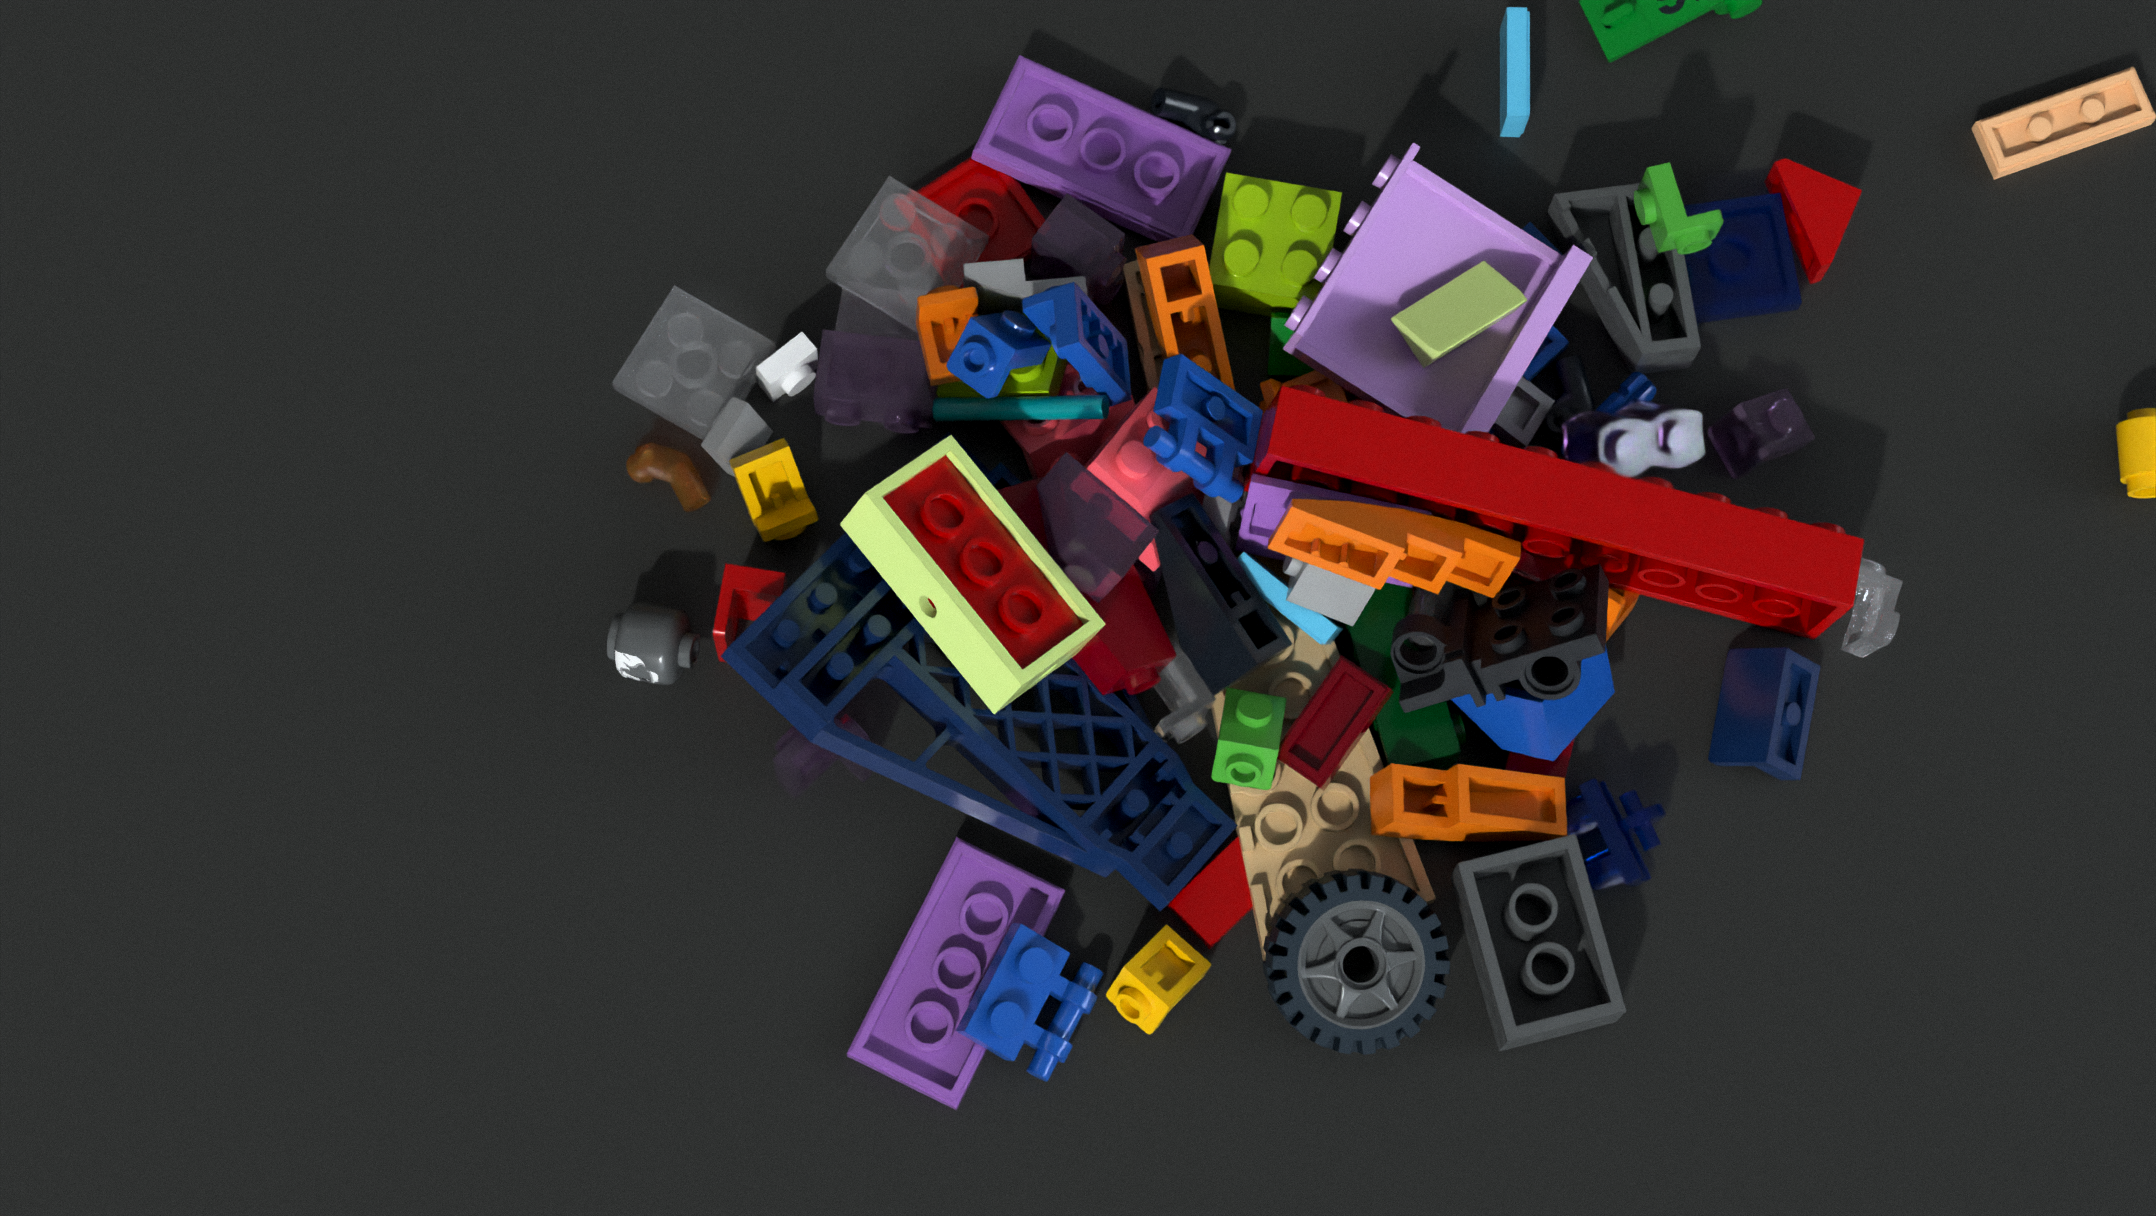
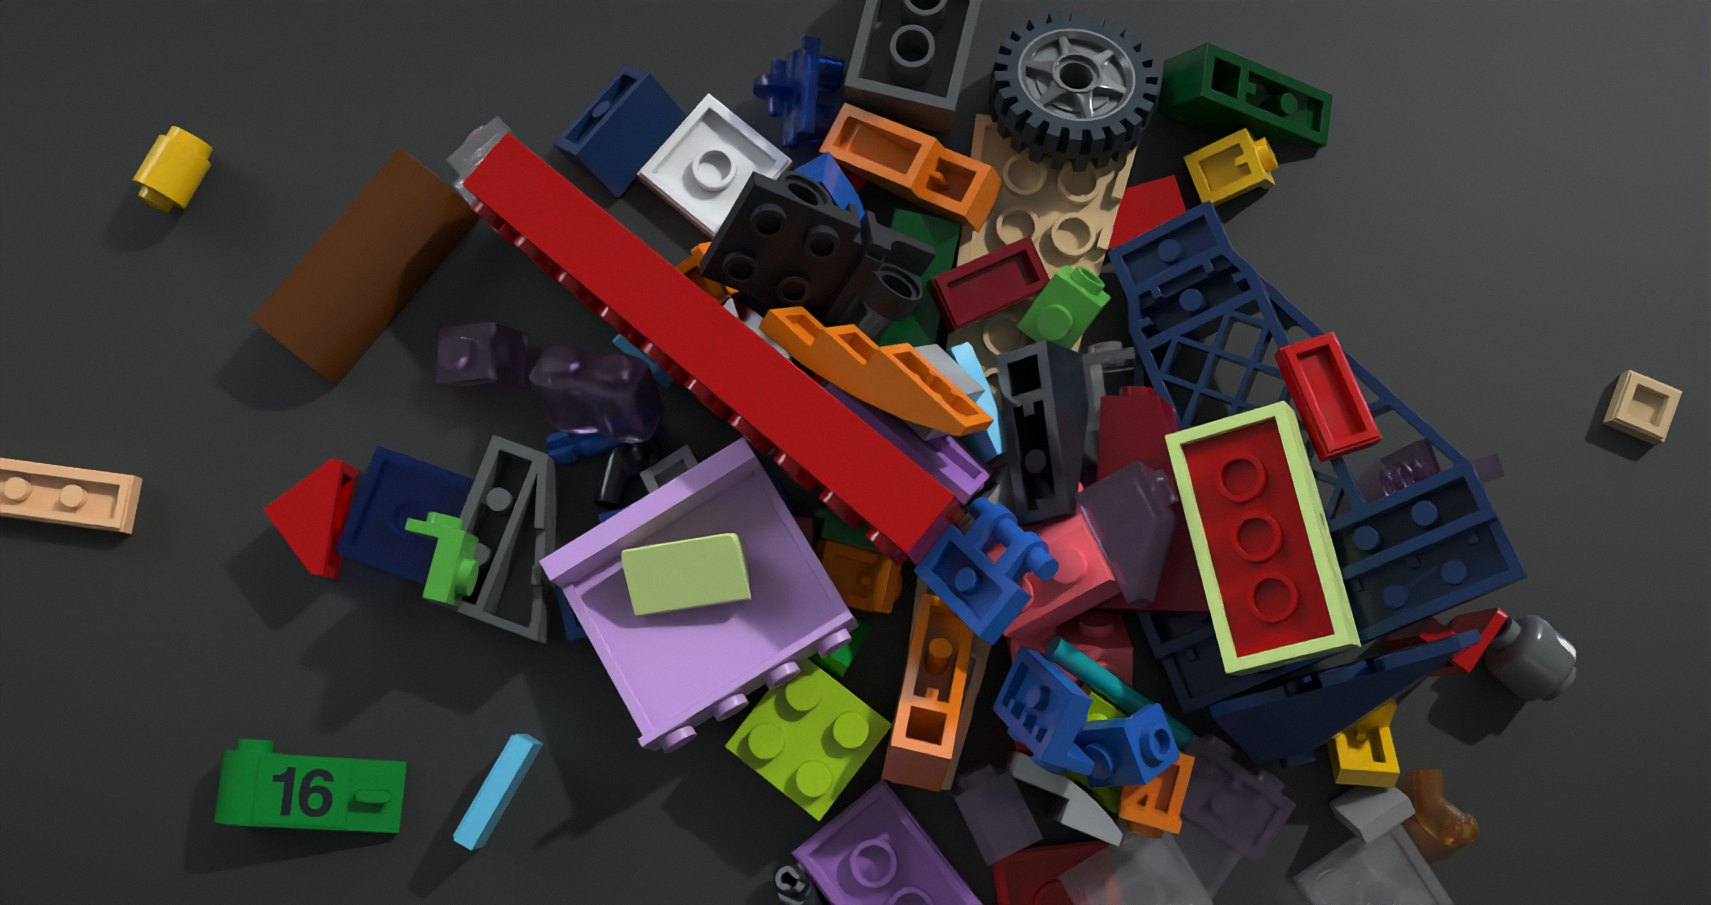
camera: 150 degrees left, 5 degrees up
(641, 952) = (1642, 407): none -> tan tile
(788, 368) = (1297, 848): white plate -> none
(839, 475) = (1312, 709): none -> dark blue wedge
(940, 967) = (1393, 256): medium lavender tile -> none
(974, 741) = (1327, 397): none -> red tile
(1013, 994) = (1356, 213): blue plate -> none
(1179, 1054) = (1233, 93): none -> dark green slope
(1655, 725) = (709, 163): none -> white tile
(1916, 455) = (367, 267): none -> reddish brown brick

